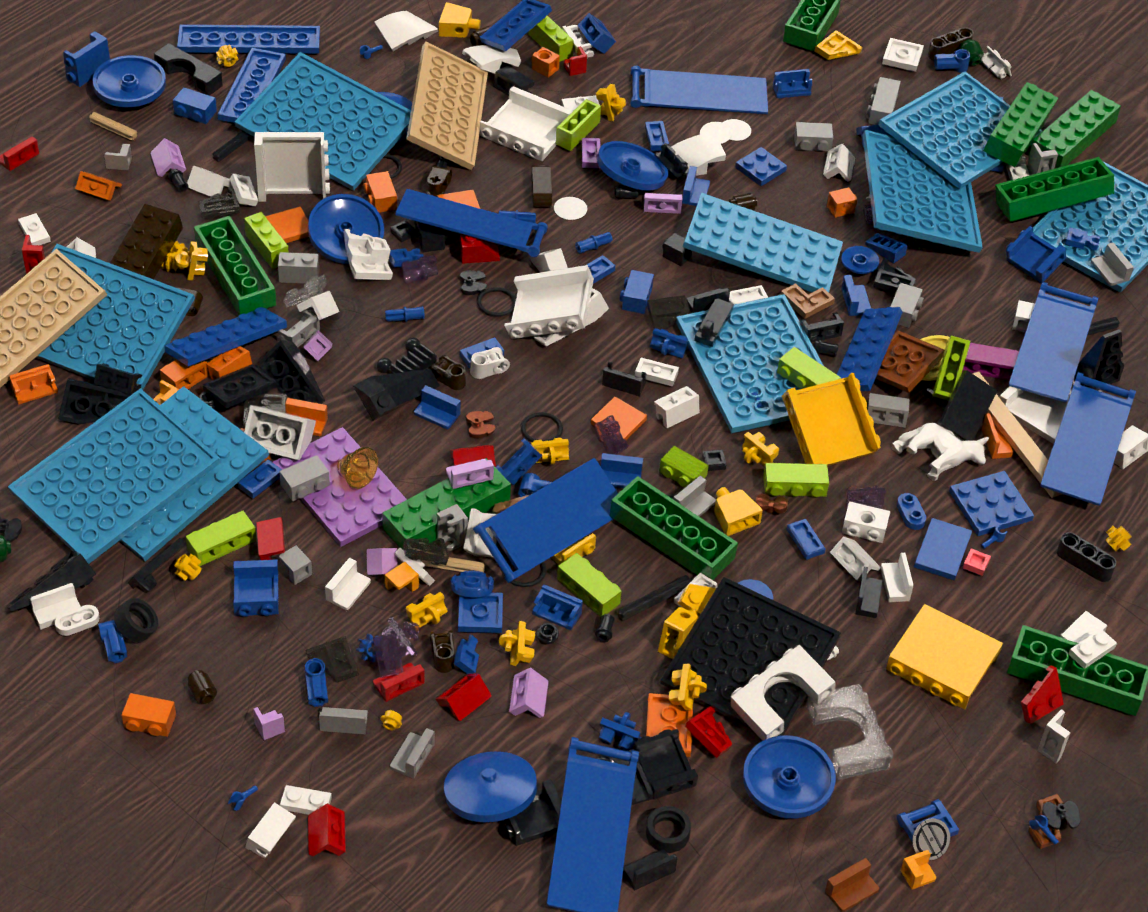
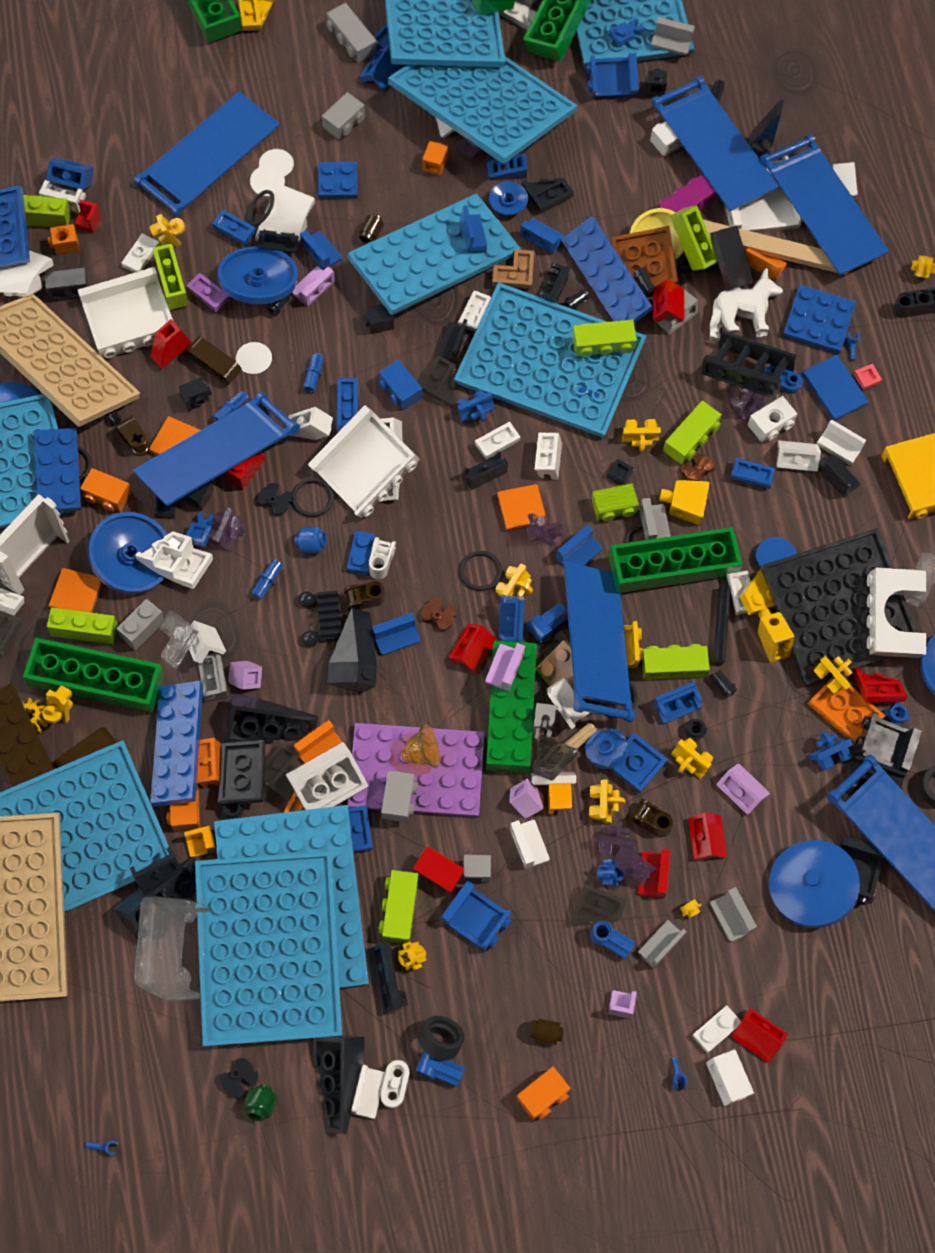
camera: 50 degrees left, 20 degrees up
(33, 384) = (88, 941): orange hinge -> none
(65, 419) = (161, 947): none -> clear windscreen
(367, 155) = (58, 467): none -> blue plate
(459, 317) = (311, 540): none -> blue head
(466, 657) = (672, 805): blue plate -> none
(504, 191) = (194, 393): none -> black brick
(527, 153) = (168, 343): none -> red slope
(686, 136) = (267, 212): none -> black piece
(703, 756) = (901, 710): none -> blue plate
(714, 322) = (486, 357): hinge -> none
(792, 83) = (268, 79): blue hinge -> none
(803, 249) = (472, 231): none -> blue panel
(832, 421) = (665, 362): yellow panel -> none
(839, 161) = (387, 123): white panel -> none
(880, 482) = (744, 377): none -> black fence
(885, 365) = (644, 280): none -> black pin
(886, 393) = (667, 301): none -> red panel
(909, 300) = (581, 205): light grey brick -> none
(1065, 278) = (656, 78): none -> black brick

